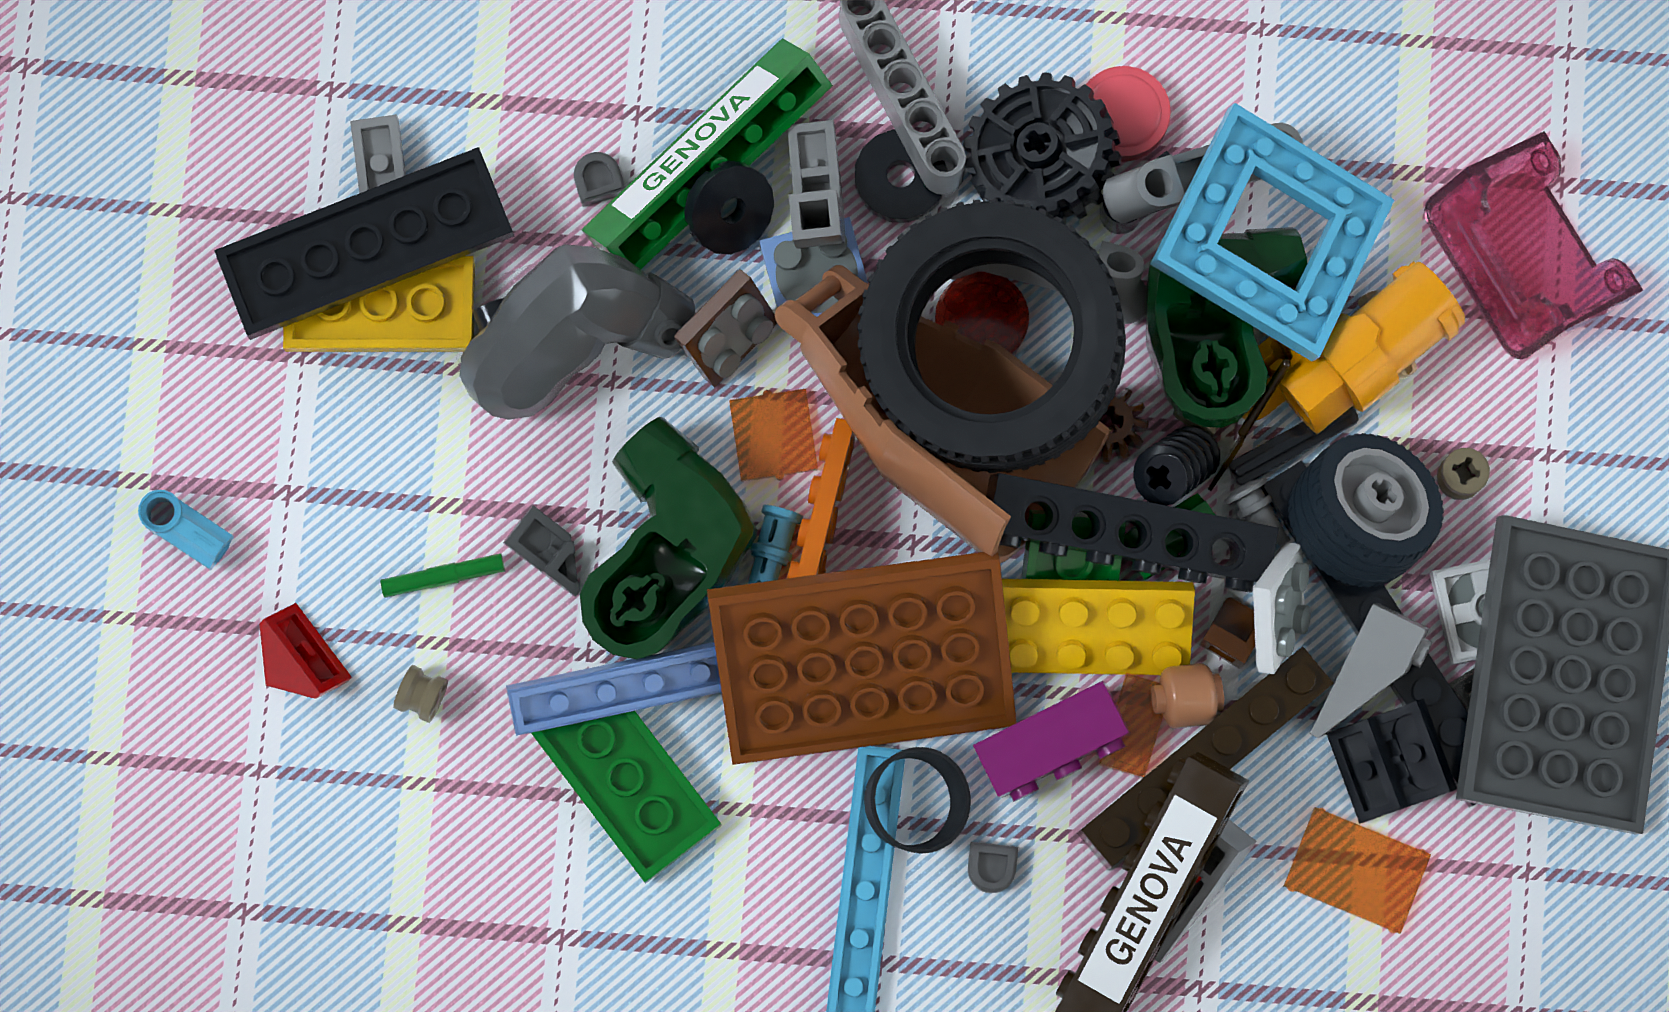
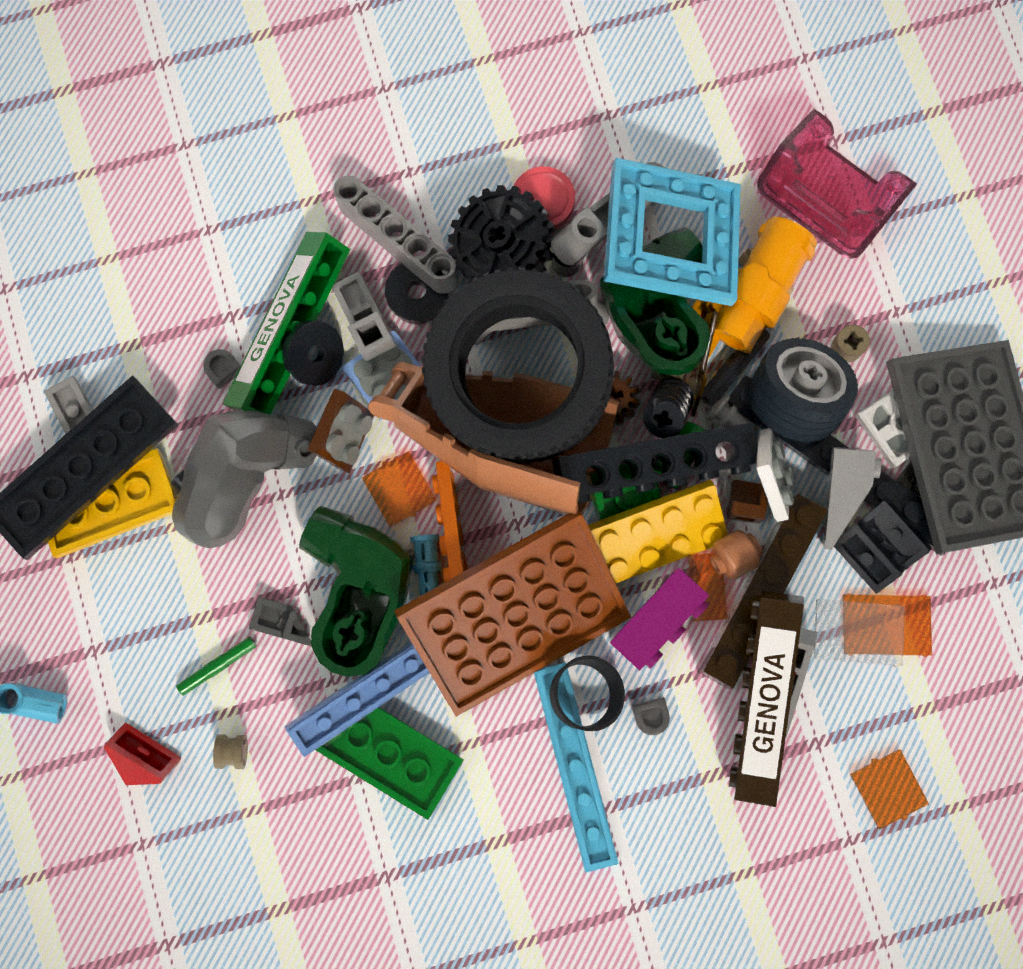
camera: 20 degrees left, 0 degrees up
(985, 309) = (505, 354): clear red tile -> none
(1314, 864) = (859, 632): none -> clear piece

